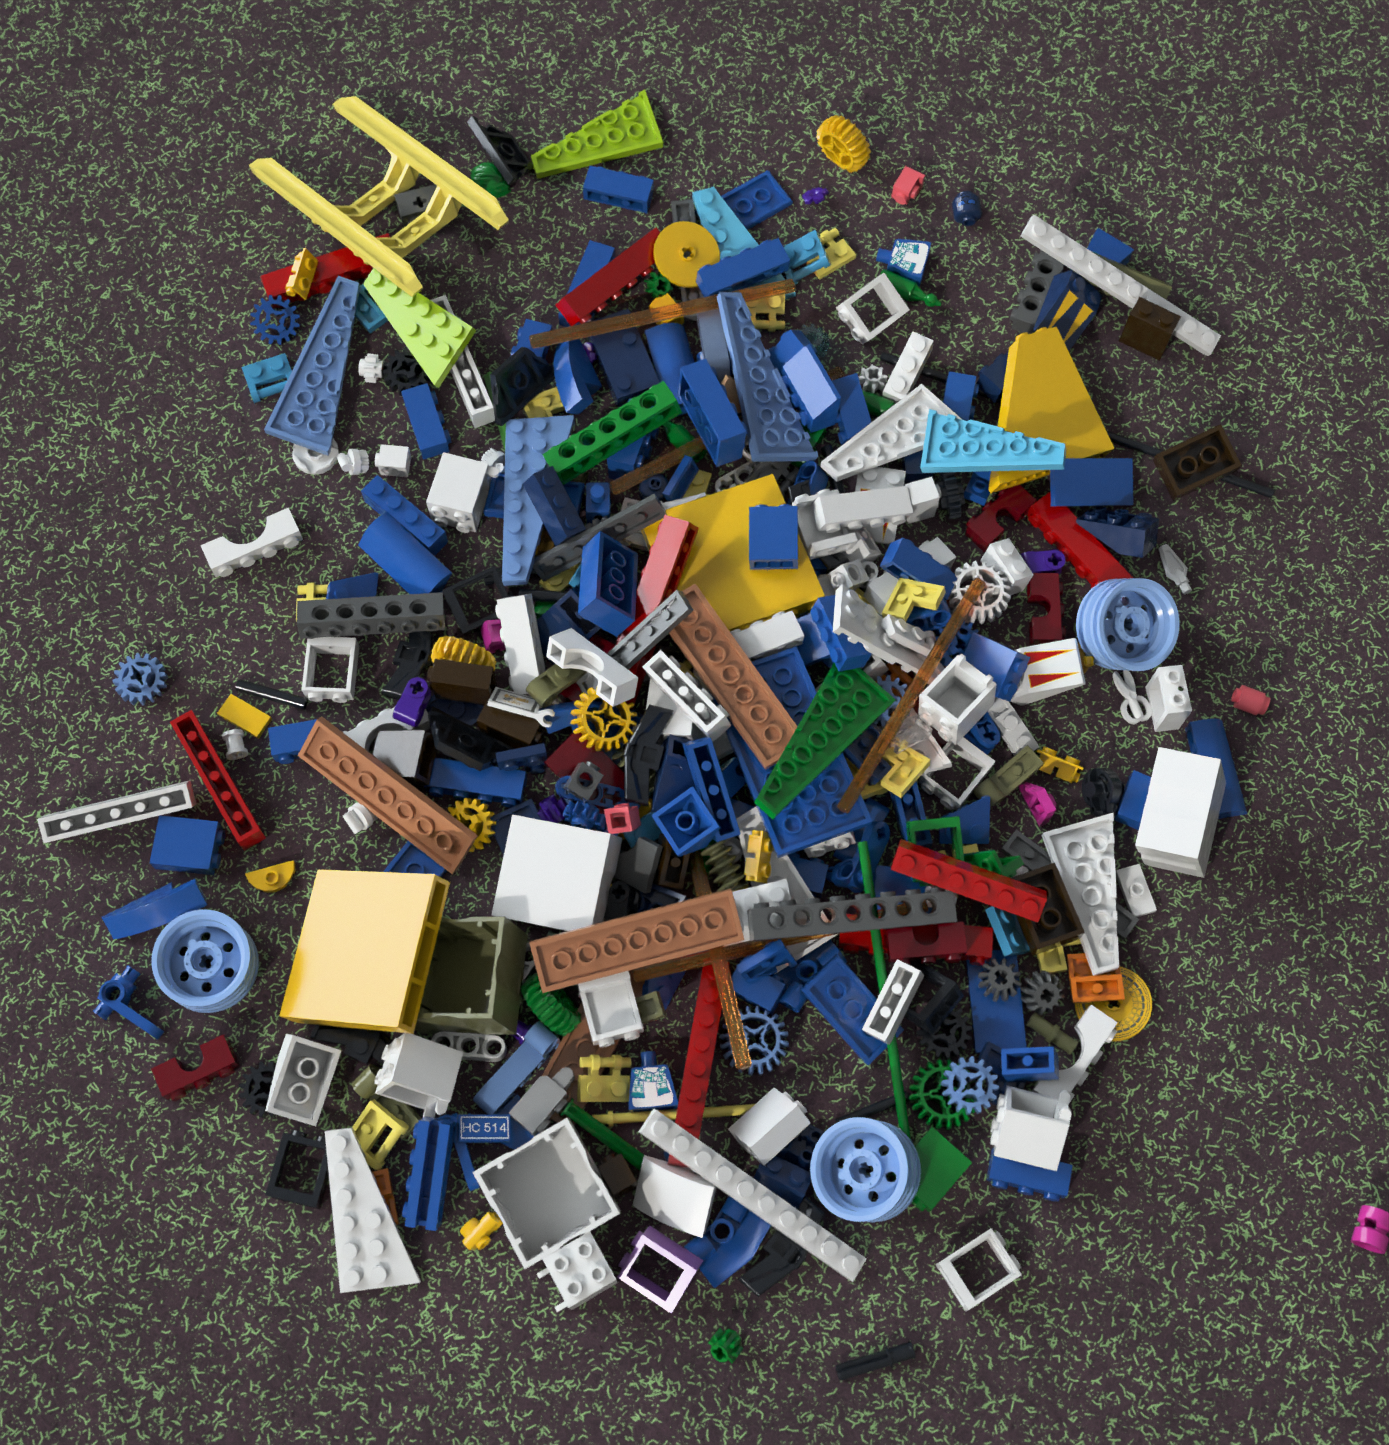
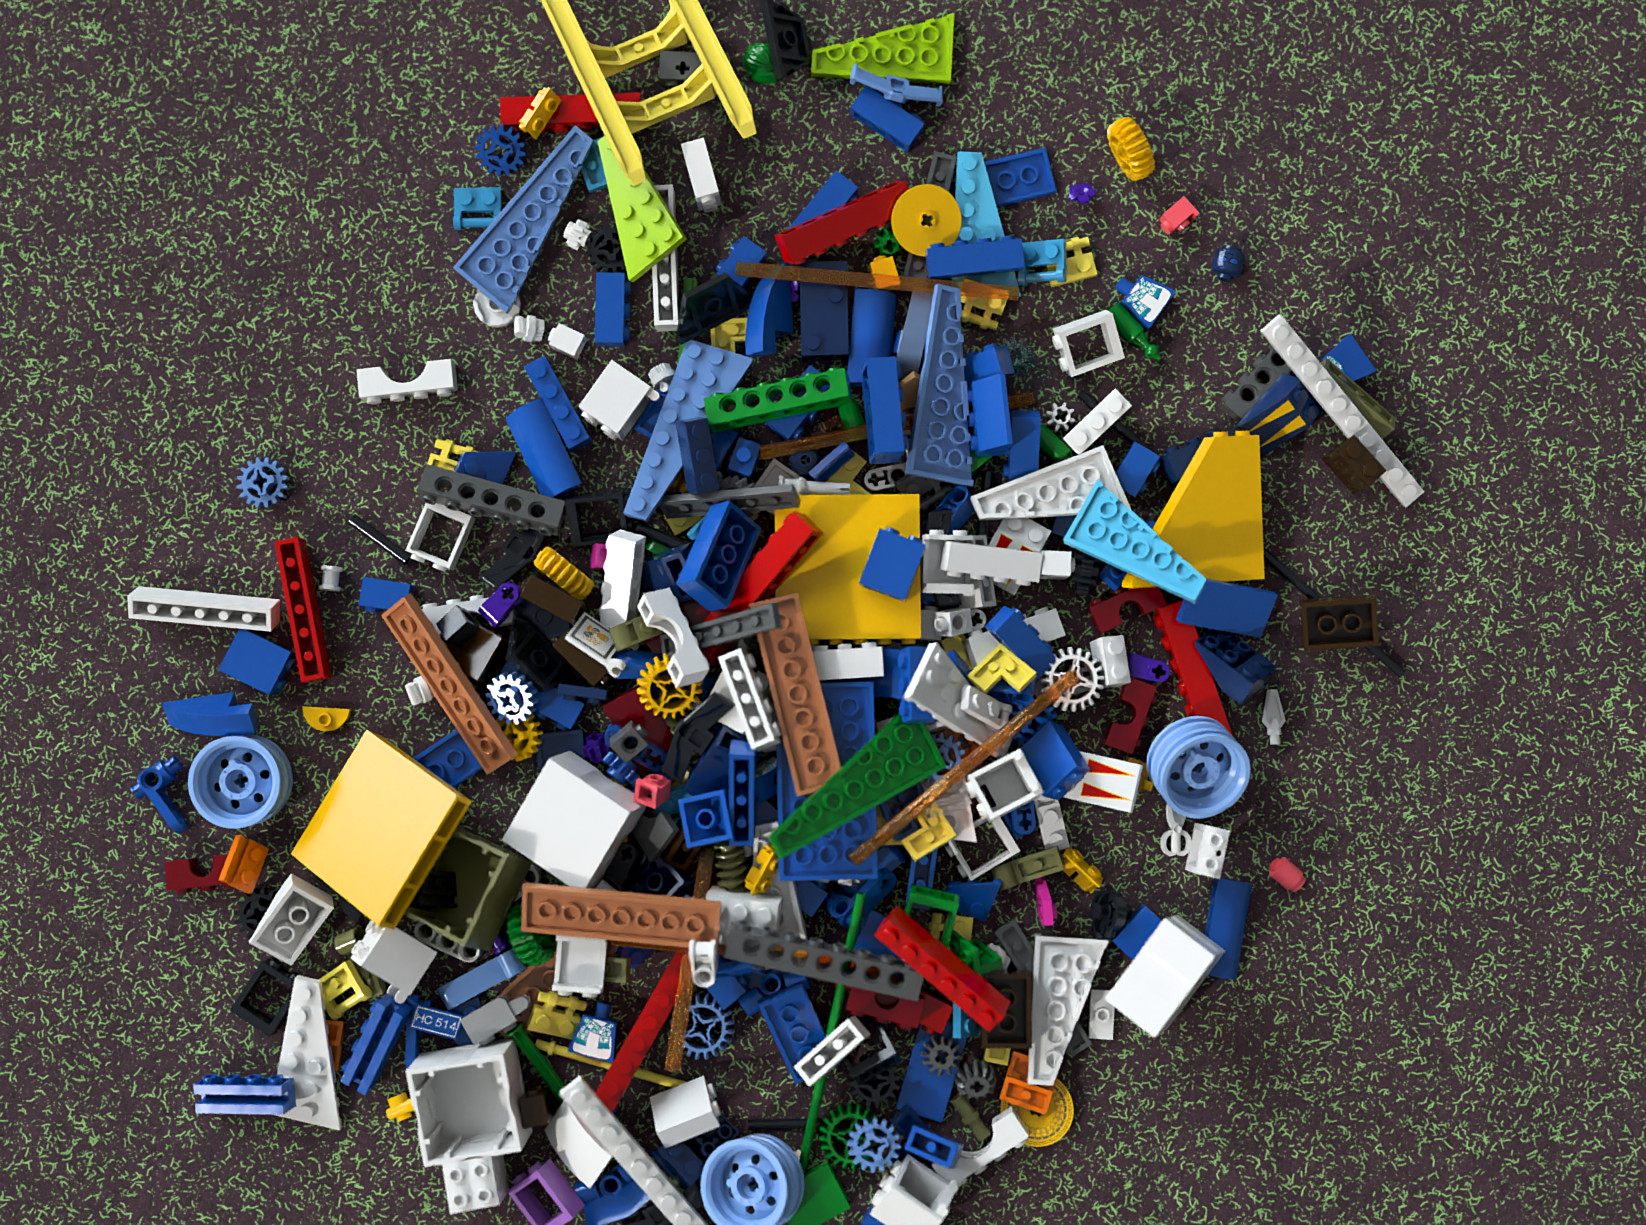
camera: 25 degrees right, 15 degrees up
(234, 1042) = (243, 864): none -> orange plate
(244, 716) = (348, 552): yellow tile -> none
(309, 1276) = (245, 1094): none -> blue brick
(377, 737) = (457, 626): none -> black brick
(442, 993) = (437, 890): none -> black plate
(450, 794) = (511, 697): none -> gear
(468, 281) = (701, 175): none -> white brick
(617, 161) = (896, 88): none -> medium blue plate
(735, 948) = (703, 961): none -> white piece

